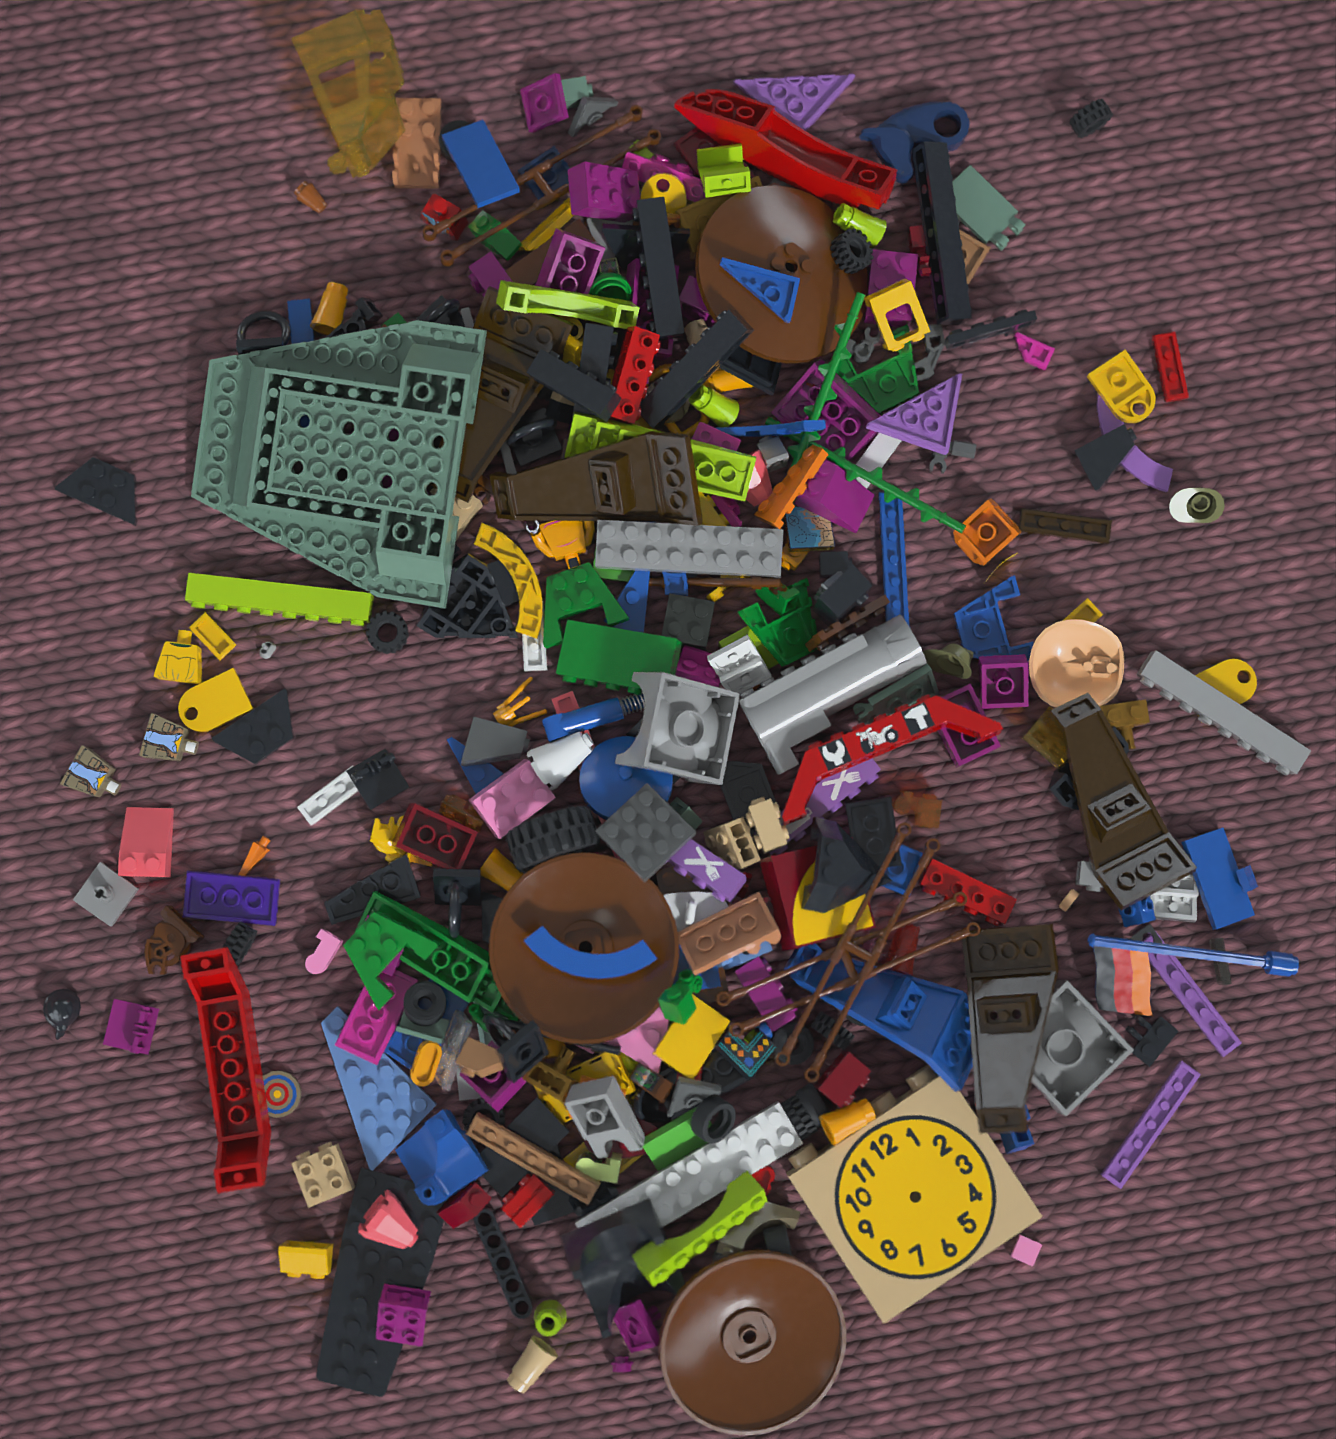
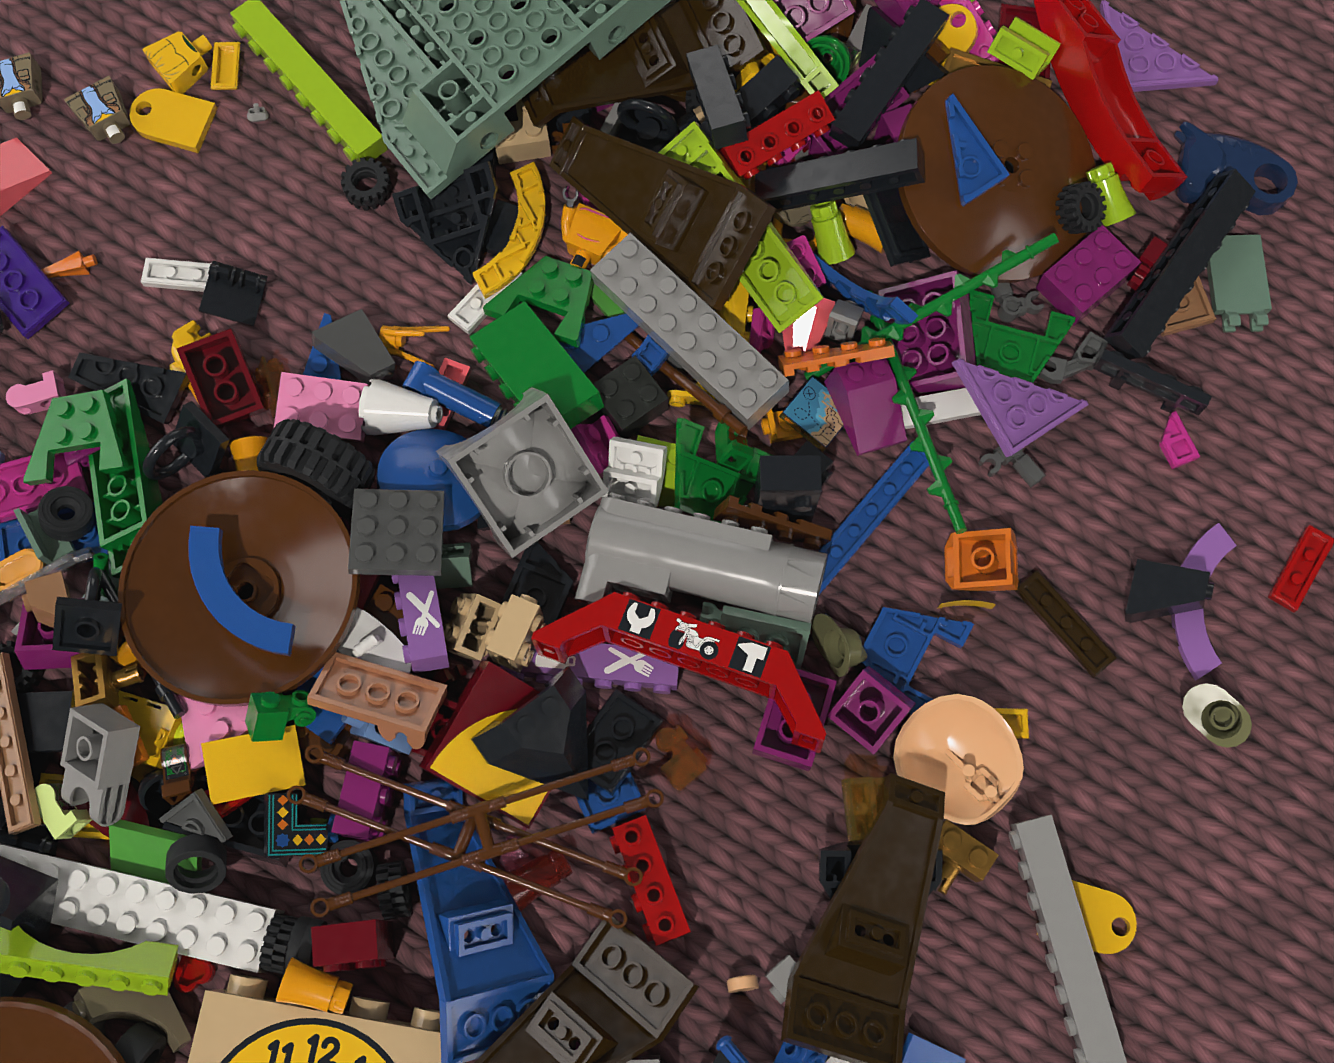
camera: 45 degrees right, 10 degrees down
(260, 730) = (184, 172): black wing -> none
(891, 298) = (1079, 271): yellow window -> none
(1122, 386) = (1237, 543): yellow tile -> none

